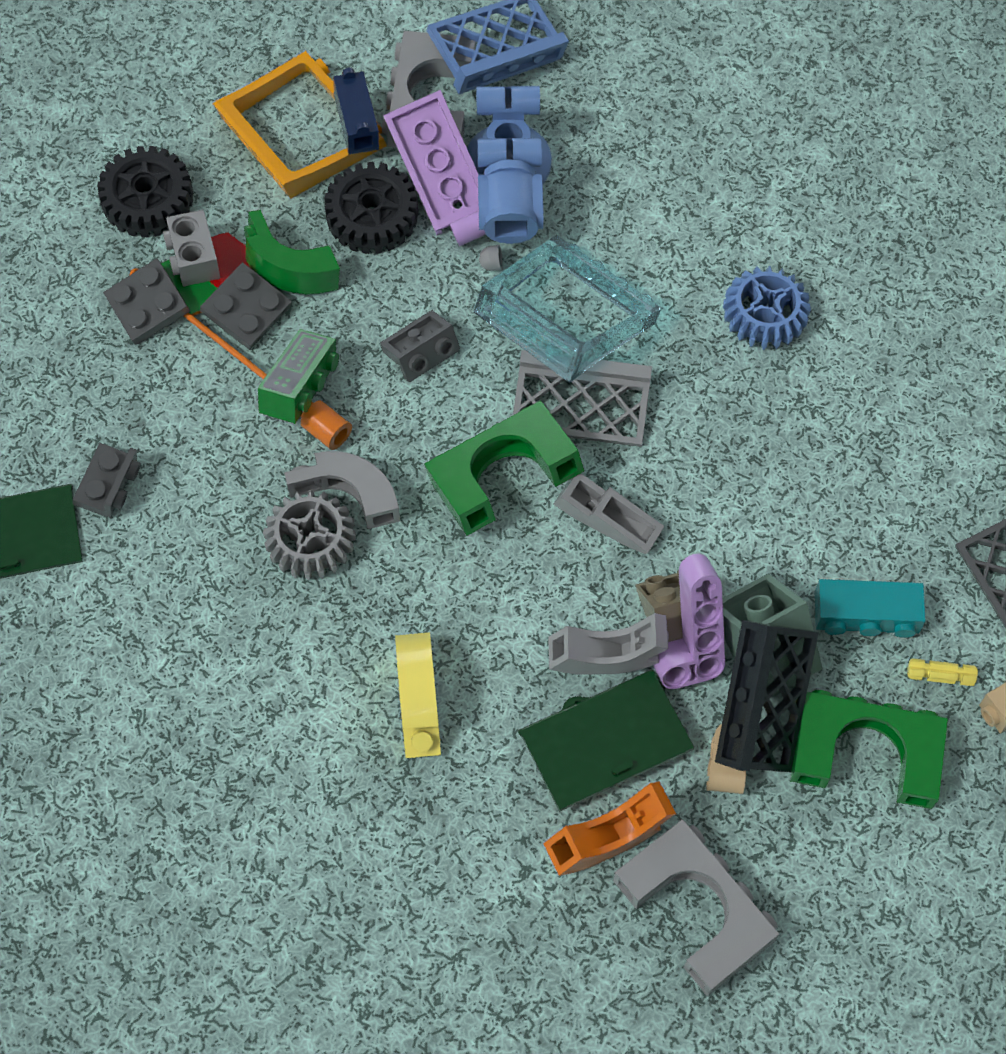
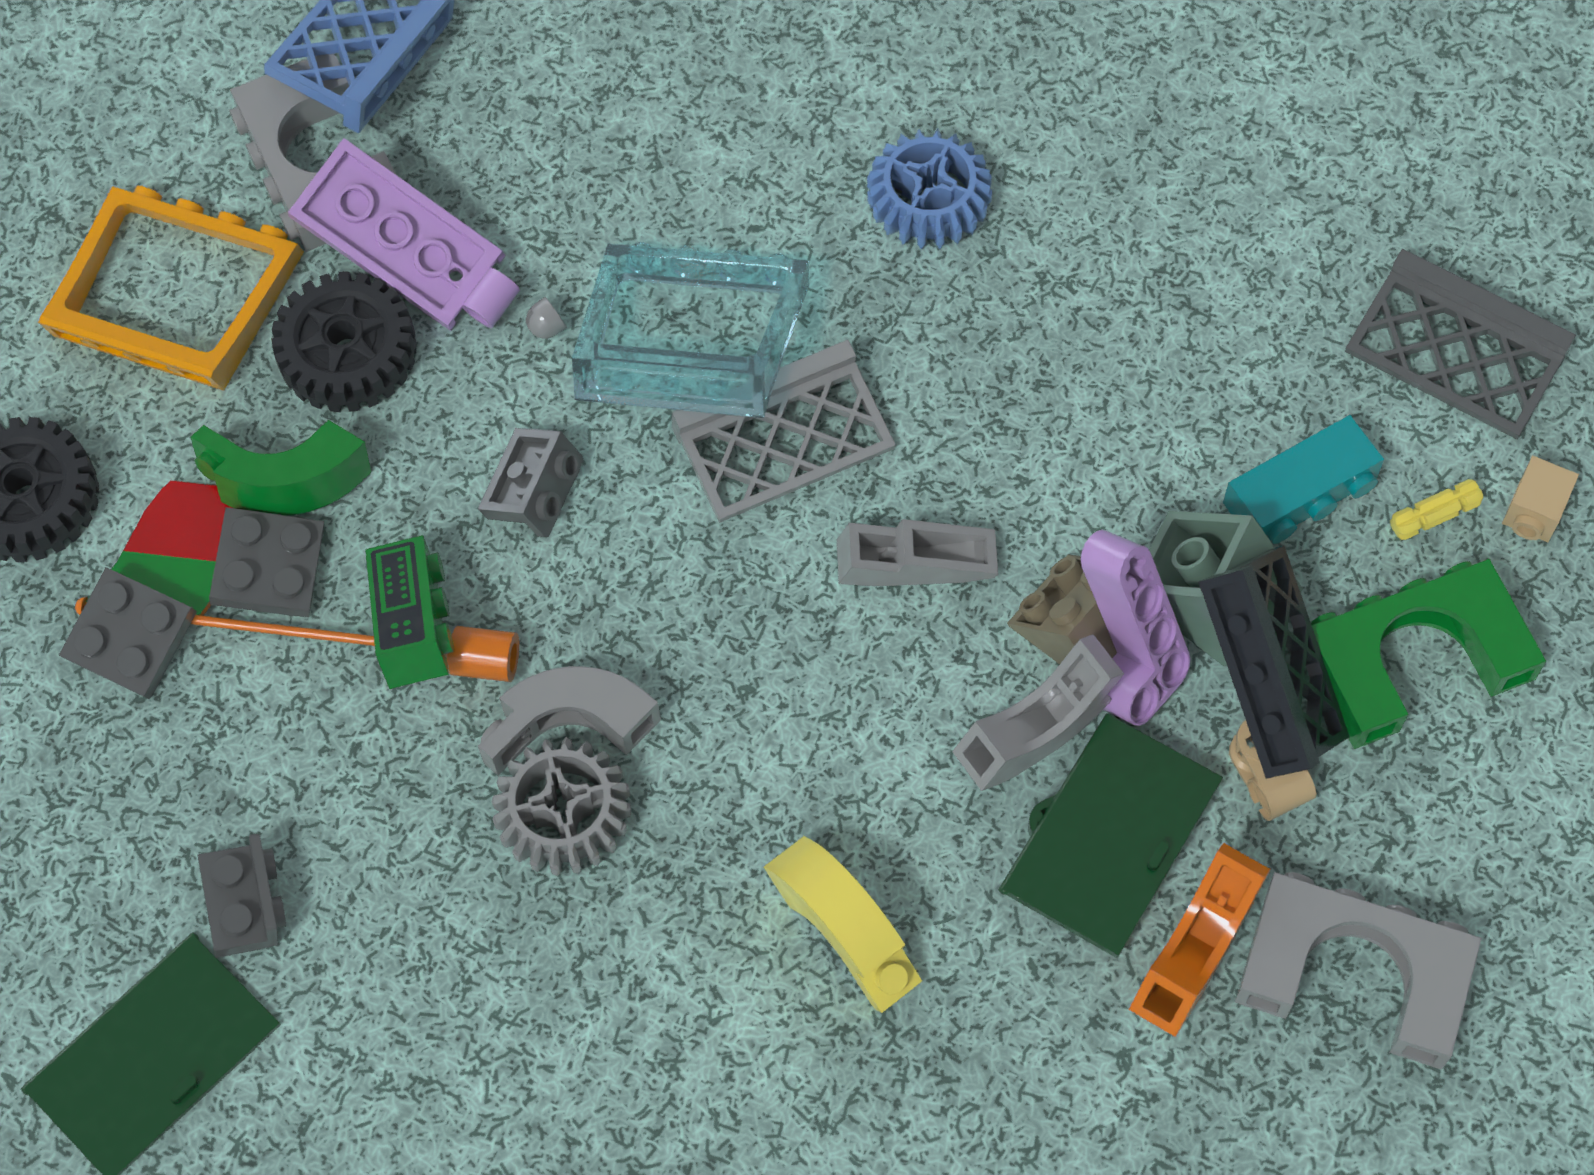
camera: 30 degrees left, 0 degrees up
(192, 248) = (149, 521): light grey brick -> none
(356, 112) = (243, 228): dark blue brick -> none
(510, 164) = (493, 185): medium blue piece -> none
(526, 434) = (754, 512): green arch -> none

